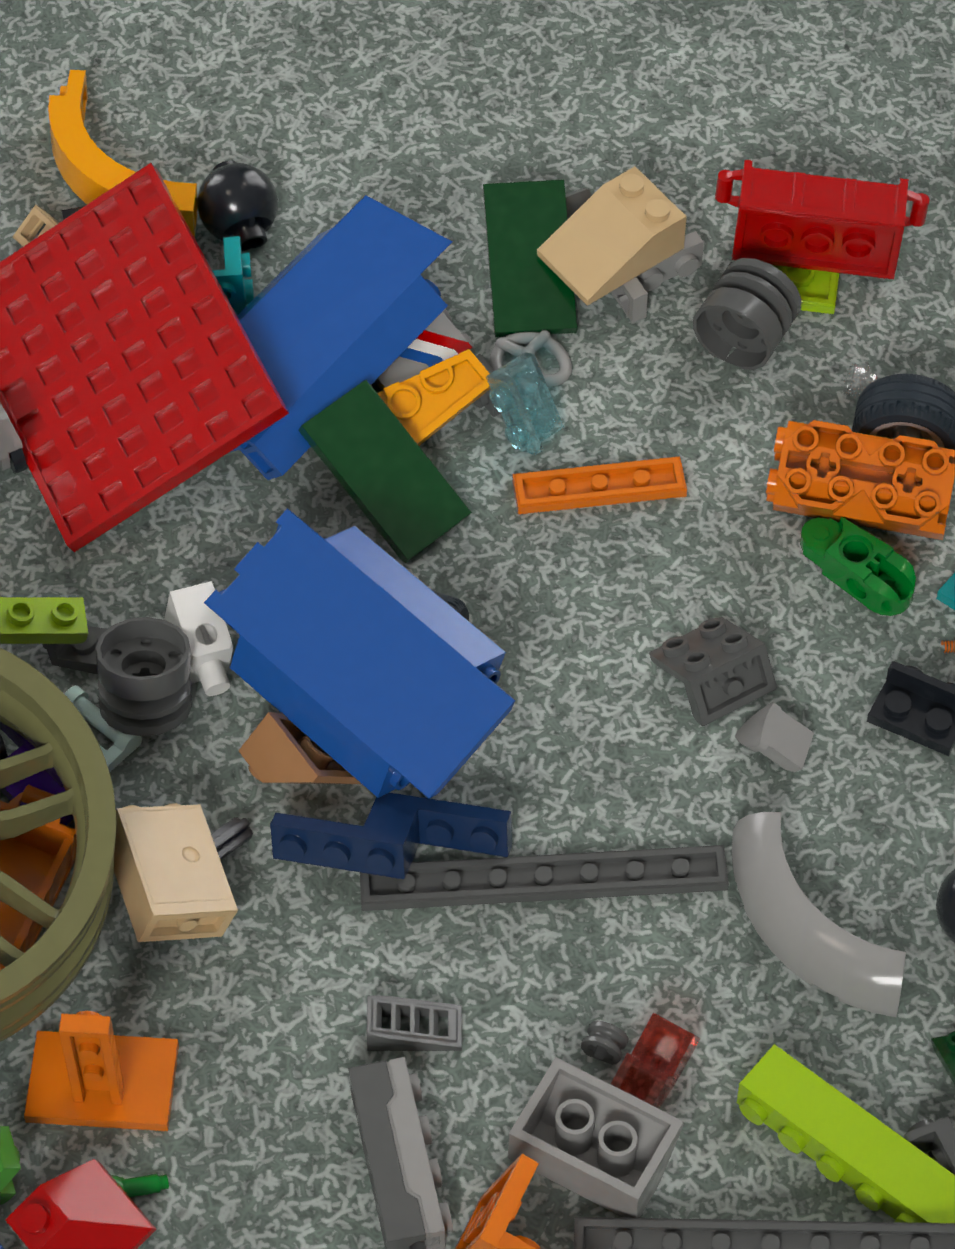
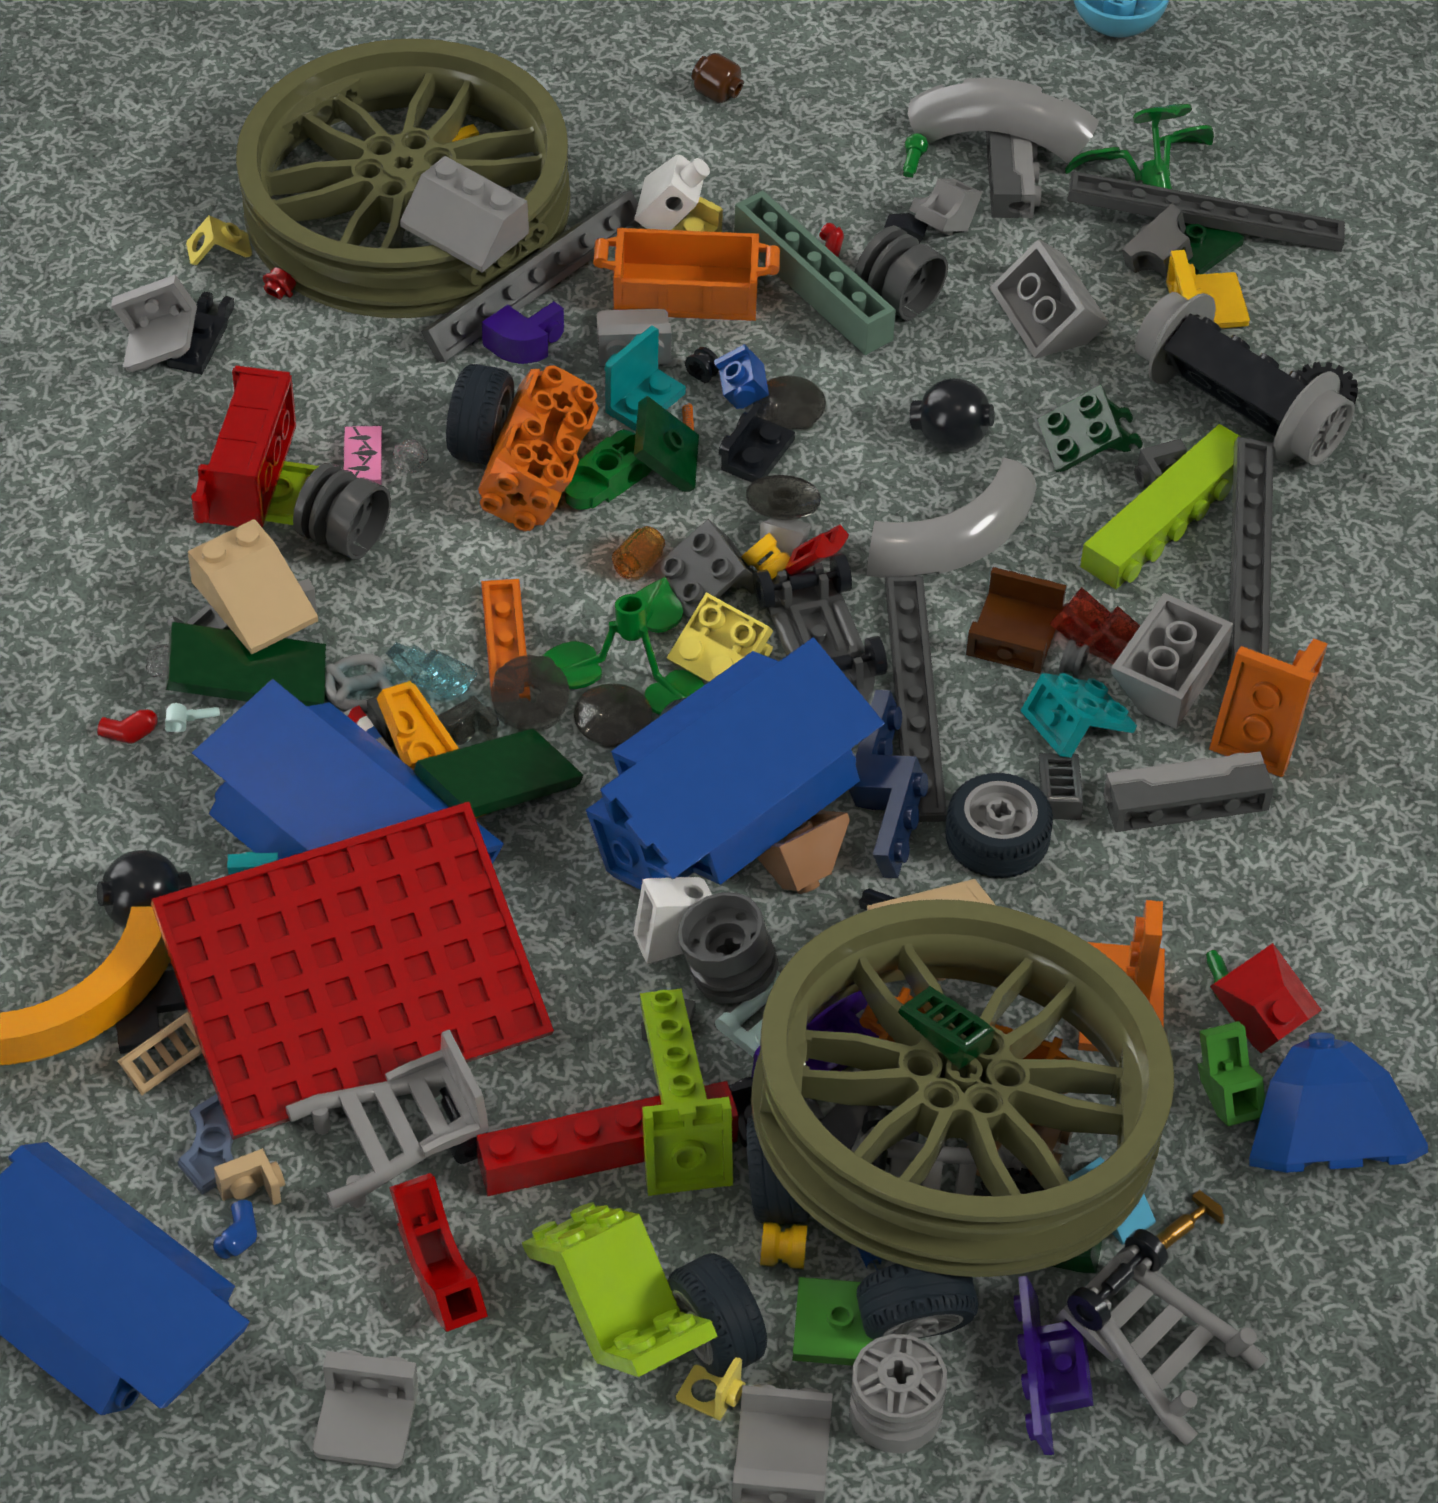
camera: 90 degrees left, 5 degrees down
(336, 950) = (999, 825): none -> black wheel
(455, 183) = (130, 729): none -> red arm
(469, 450) = (468, 718): none -> clear smoke bracket
(472, 218) = (178, 715): none -> light aqua hand
(497, 585) = (611, 714): none -> clear smoke dish
(500, 485) = (540, 674): none -> clear smoke plate
(515, 1041) = (1067, 706): none -> teal bracket
(571, 544) = (649, 609): none -> green plant
(597, 677) = (718, 639): none -> light yellow plate
(621, 775) = (813, 606): none -> dark grey piece
(658, 979) = (1016, 620): none -> reddish brown panel
(727, 716) = (775, 563): none -> yellow wheel
(728, 755) = (816, 550): none -> red slope
(731, 595) = (638, 552): none -> clear orange brick
(841, 722) = (783, 497): none -> clear smoke dish
(858, 343) = (364, 452): none -> bright pink tile
(894, 609) = (666, 445): none -> dark green plate

